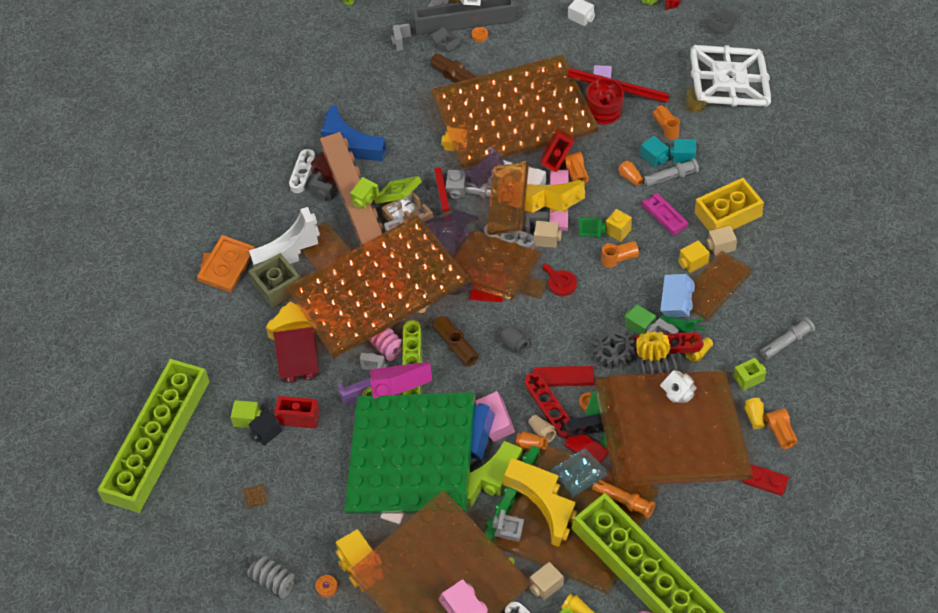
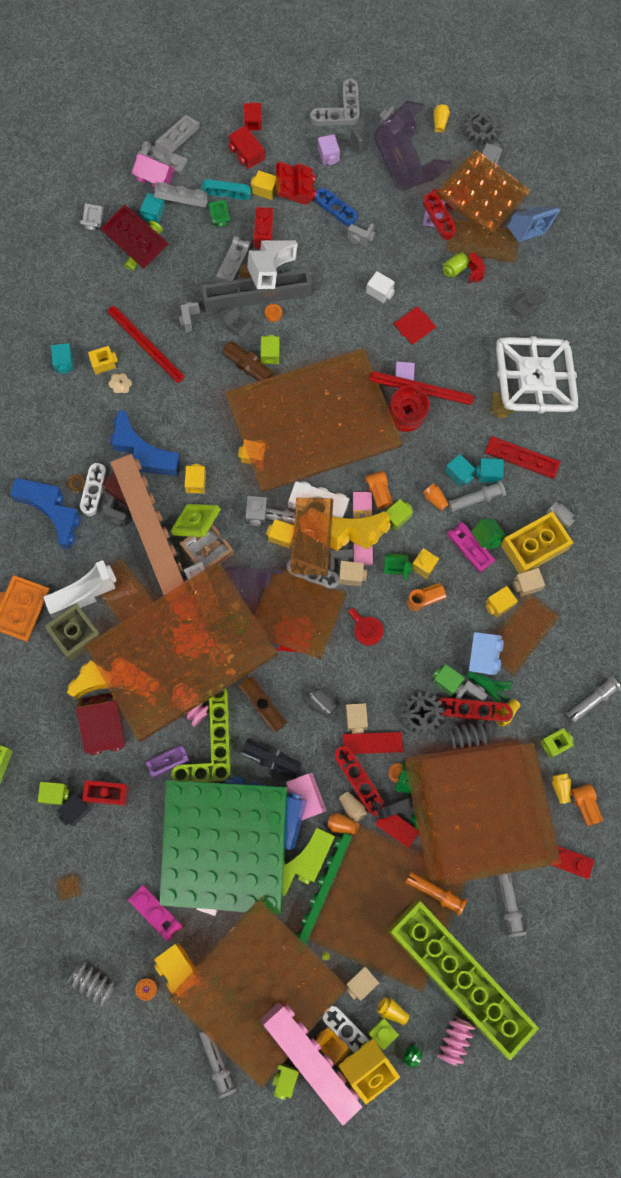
camera: 10 degrees left, 20 degrees up
(261, 180) = (47, 499): none -> blue arch
(281, 69) = (62, 358): none -> teal brick
(287, 171) = (74, 478): none -> clear orange bush
(318, 69) = (98, 359): none -> yellow brick
(330, 91) = (120, 383): none -> tan plant
(337, 517) = (155, 913): none -> dark pink plate
(359, 59) = (146, 344): none -> red axle
(364, 193) = (161, 534): lime brick -> none
(372, 361) = (179, 729): light grey bracket -> none
(399, 160) = (195, 479): none -> yellow brick
(399, 378) = (204, 763): dark pink slope -> none
(442, 190) = (242, 521): red tile -> none
(459, 384) = (271, 758): none -> black piece
(475, 60) = (270, 349): none -> lime brick
(478, 202) = (280, 533): none -> yellow brick
(485, 168) = (286, 497): clear purple hinge -> none
(507, 526) = (323, 929): light grey bracket -> none
(534, 287) = (340, 636): clear orange tile -> none
(542, 490) = (356, 888): yellow arch -> none
(548, 351) = (356, 718): none -> tan brick
(556, 149) = (360, 473): red brick -> none
(579, 472) = (392, 867): clear light blue plate -> none
(595, 187) = (399, 514): none -> lime brick
(613, 42) = (414, 325): none -> red piece
(652, 346) = (470, 717): yellow gear -> none
(668, 122) = (472, 431): orange piece -> none
(679, 387) = (492, 777): white brick -> none
(681, 199) = (488, 533): none -> green brick
(703, 523) = (512, 914): none -> light grey pin
(718, 143) = (522, 457): none -> red tile
(757, 185) = (563, 514): none -> light grey brick

